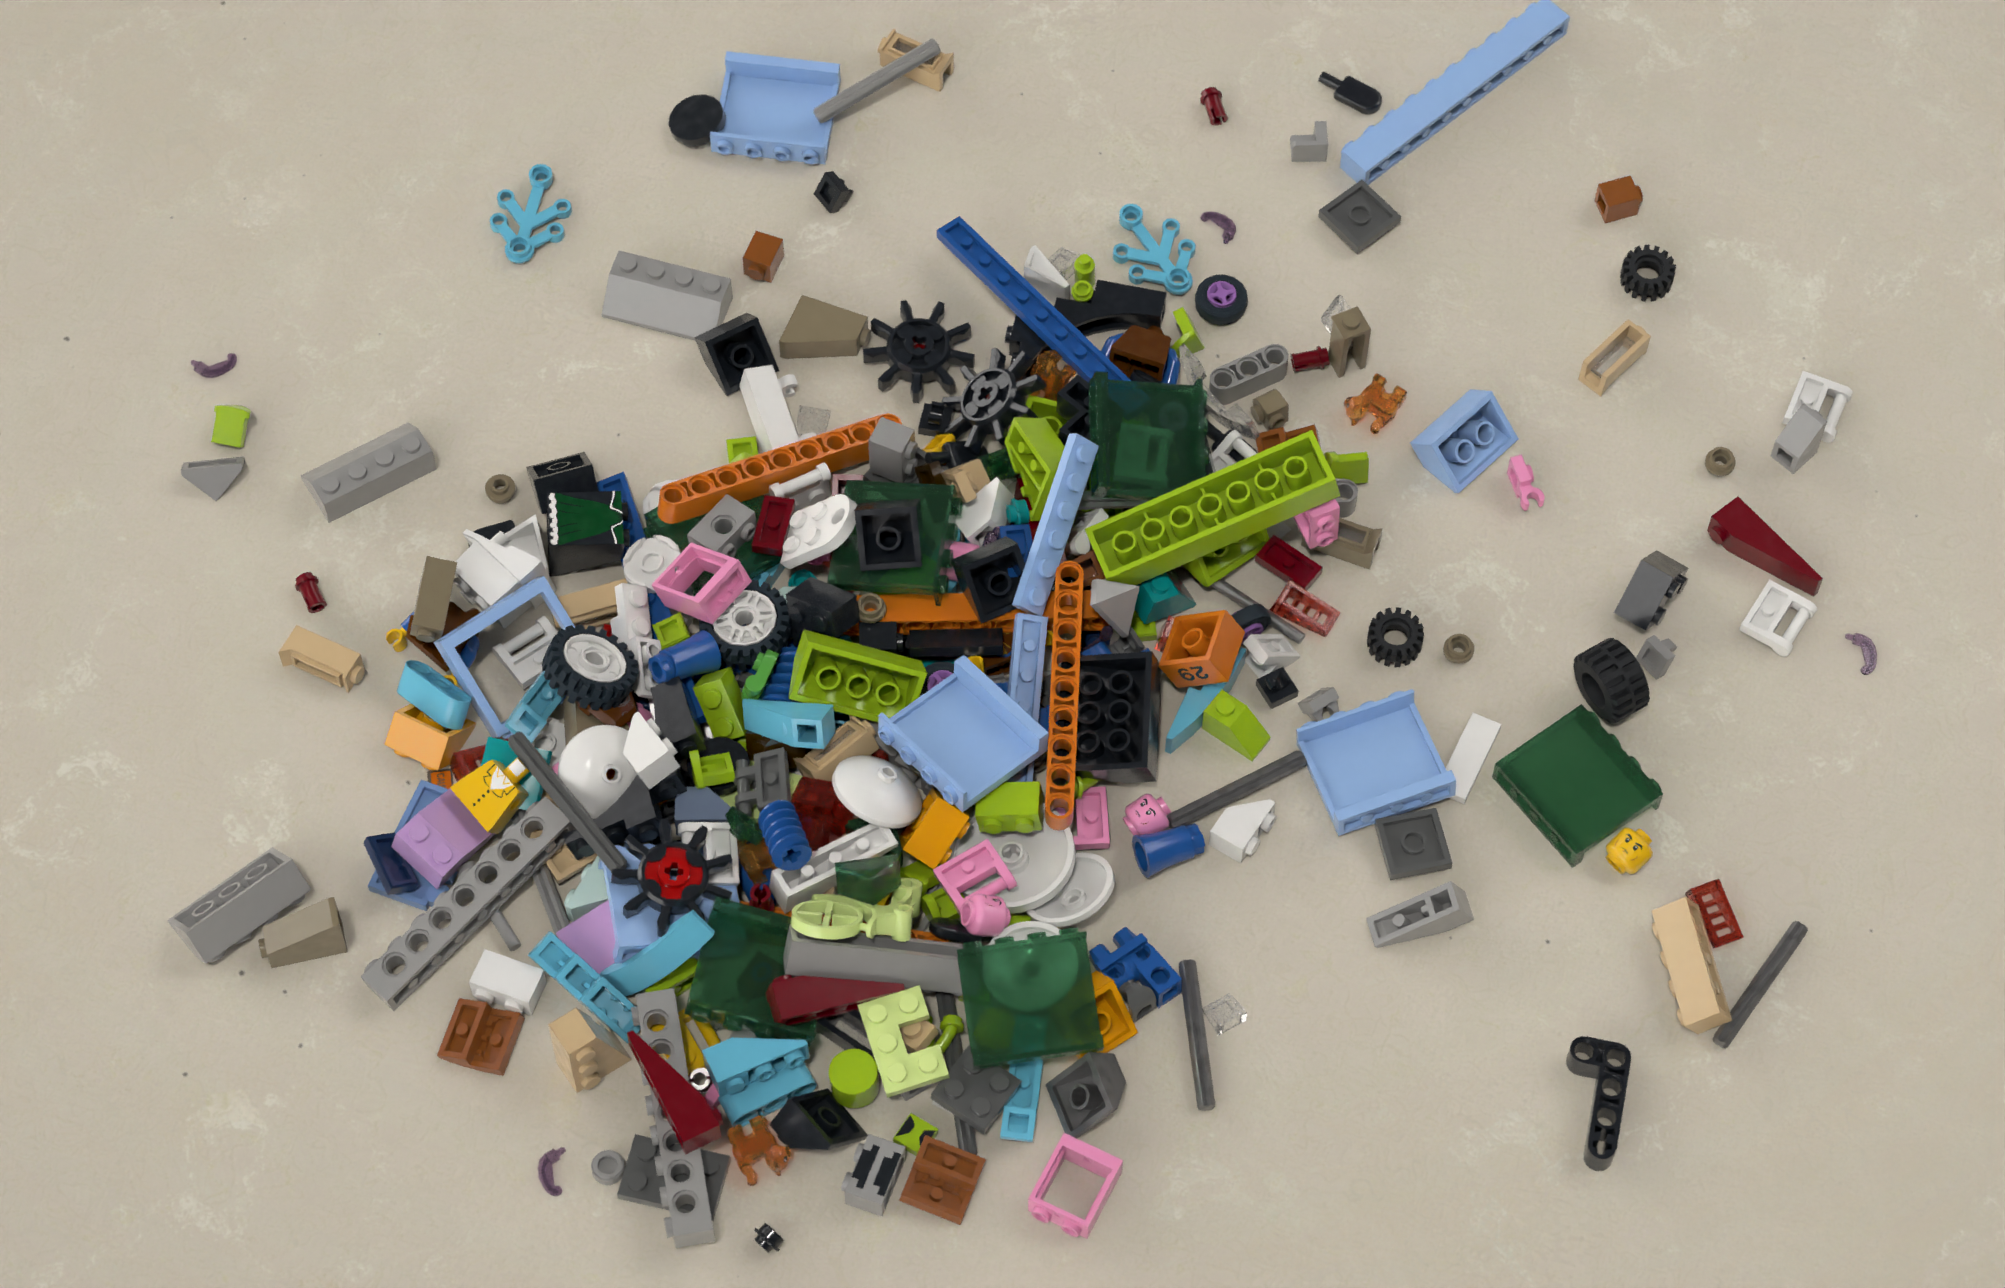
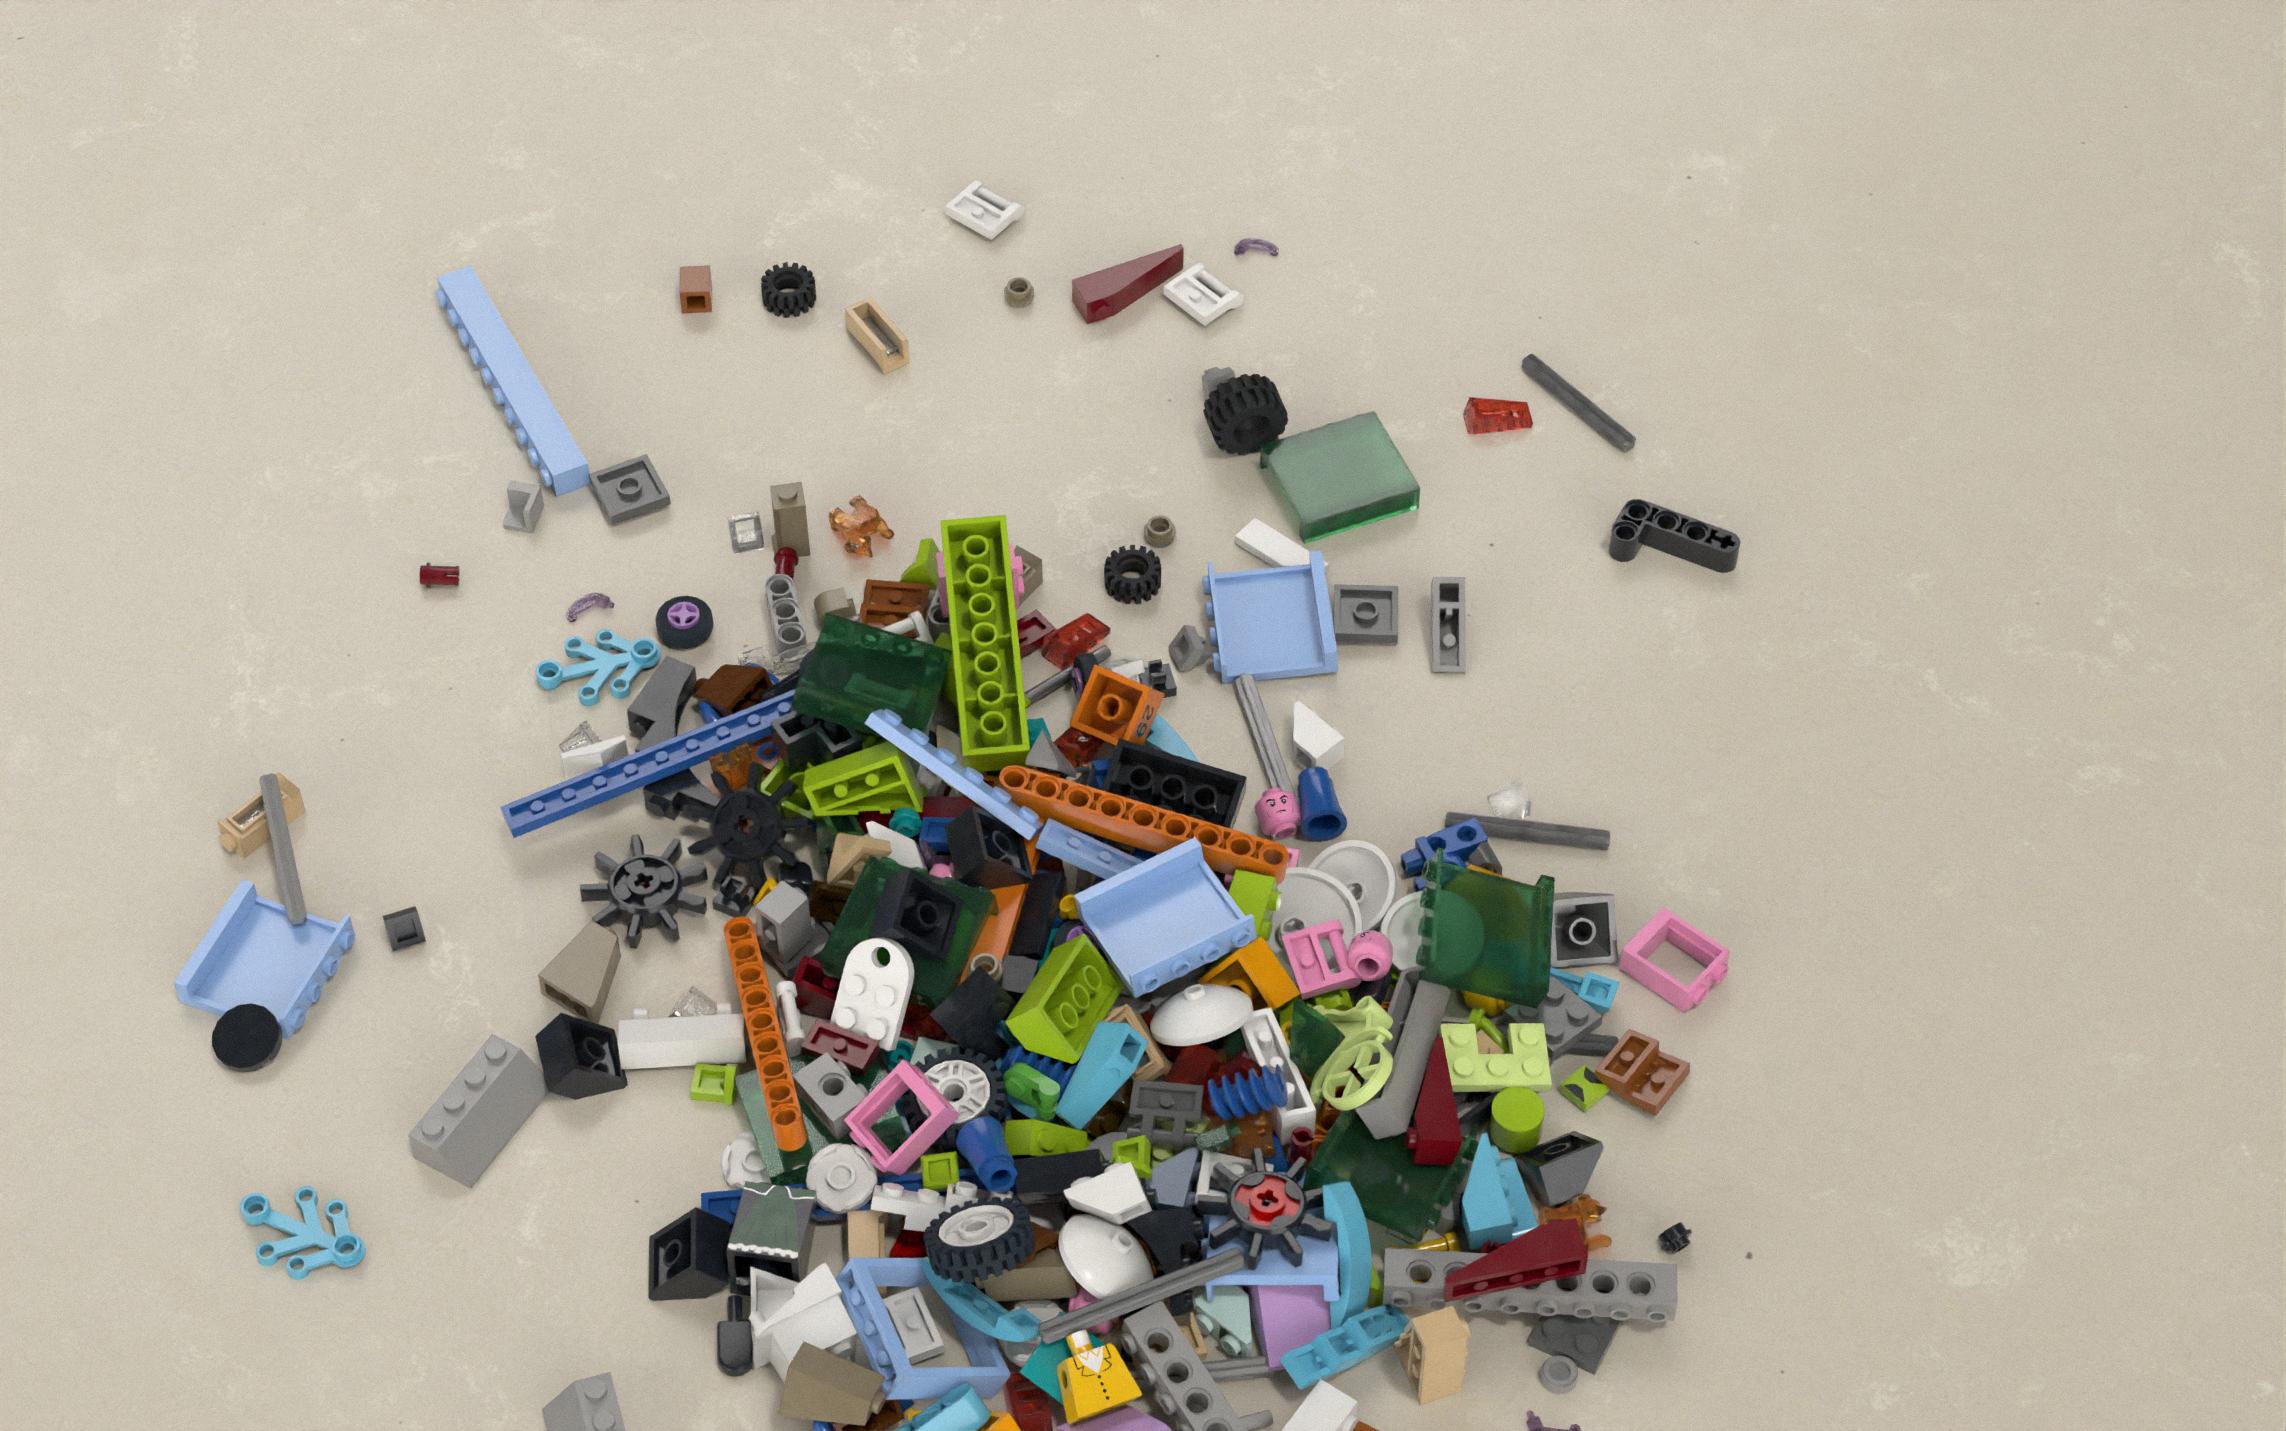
camera: 75 degrees left, 10 degrees down
(500, 495) = (672, 1335): dark tan plate -> none
(763, 256) = (463, 1009): dark orange brick -> none
(874, 1174) = (1626, 1127): brick -> none
(1084, 278) = (608, 723): lime plant -> none
(1190, 335) = (713, 654): lime tile -> none
(1235, 725) = (1195, 719): lime slope -> none
(1353, 93) = (472, 462): black piece -> none
(1465, 439) = (925, 468): light blue slope -> none
(1521, 478) = (989, 437): bright pink plate -> none
(1629, 850) = (1421, 455): yellow head -> none
(1650, 587) = (1153, 366): brick -> none
(1690, 966) = (1554, 438): tan brick -> none
(1799, 439) = (1024, 223): light grey slope -> none

